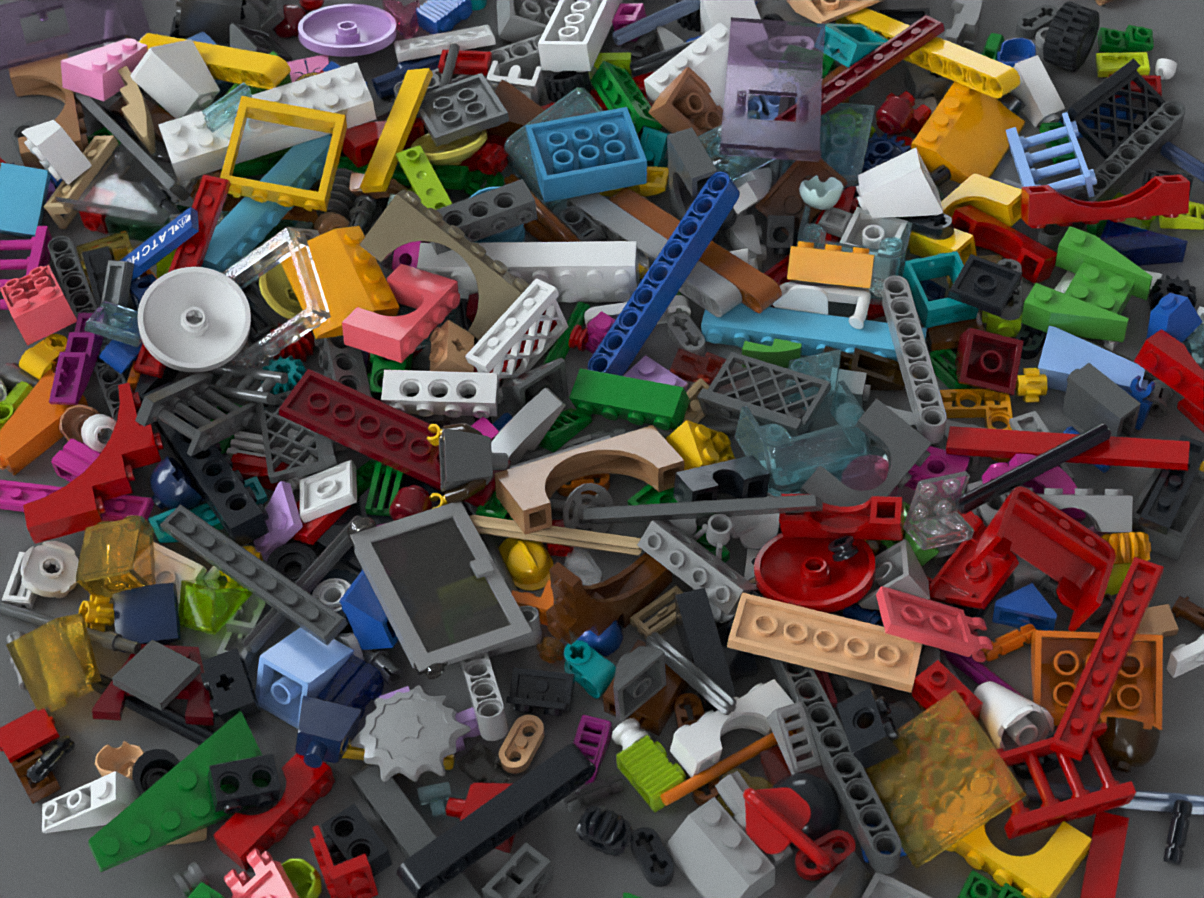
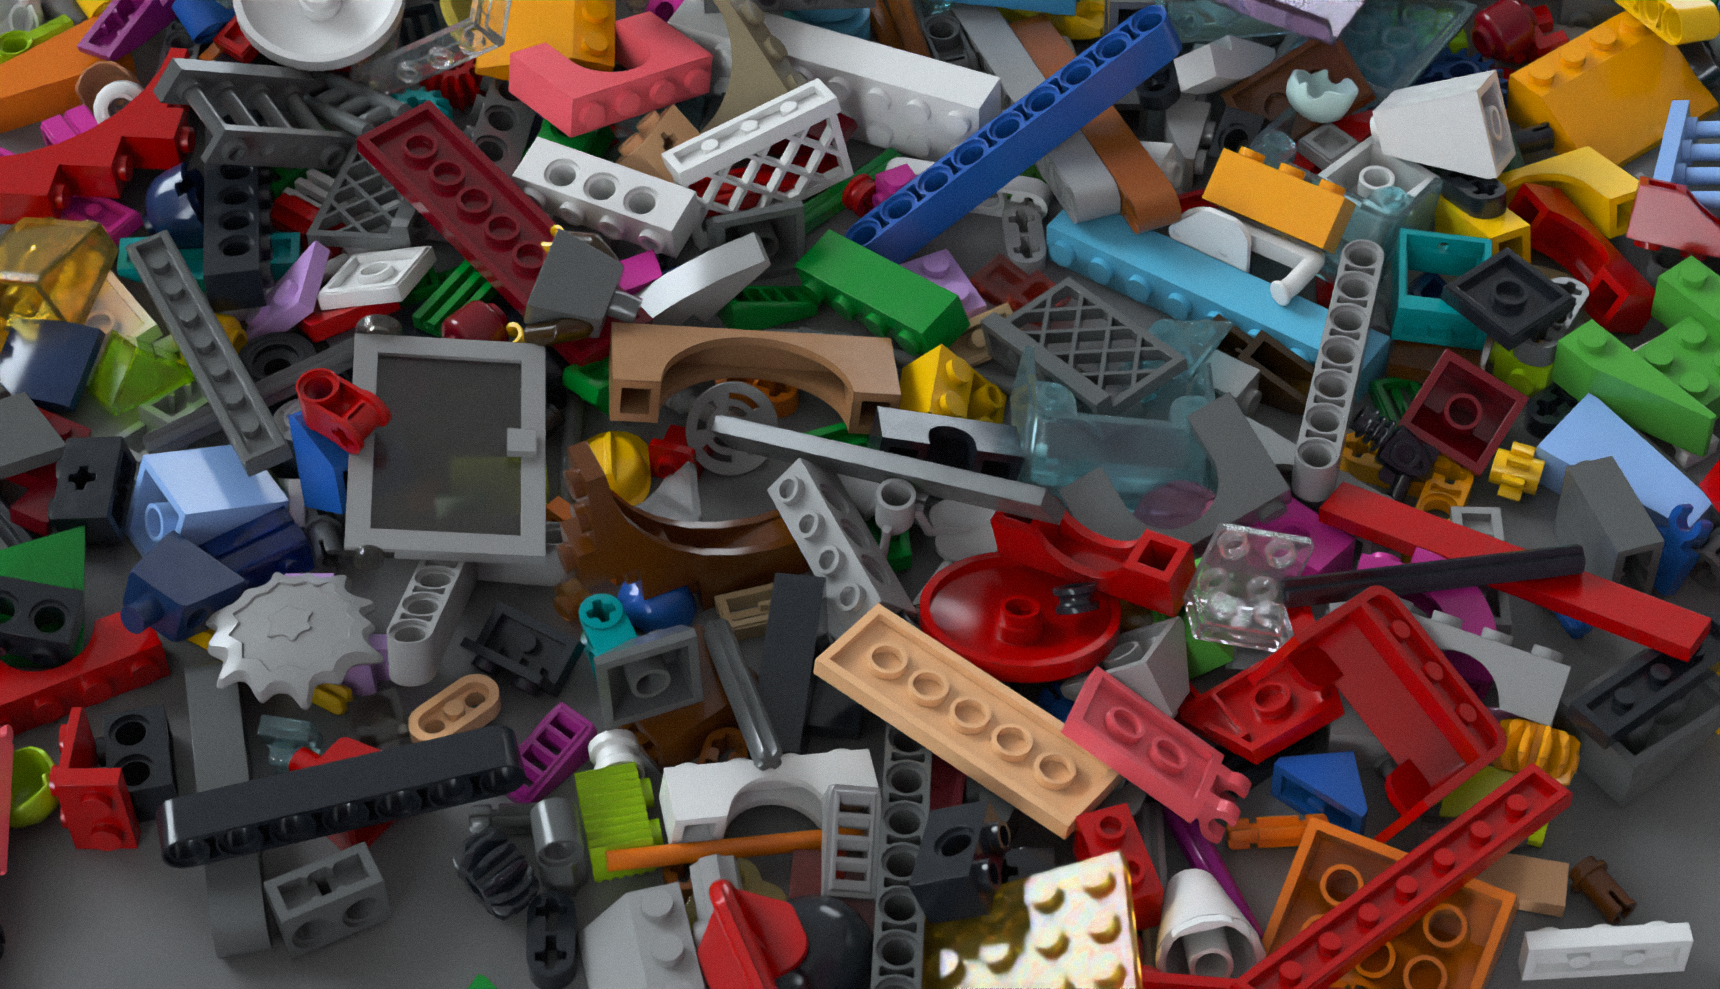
camera: 20 degrees right, 5 degrees down
(381, 587) = (340, 408): none -> red piece
(559, 536) = (662, 441): tan axle -> none
(634, 800) = (559, 845): none -> dark grey piece
(777, 354) = (1141, 305): bright green slope -> none
(966, 396) = (1399, 451): none -> black piece

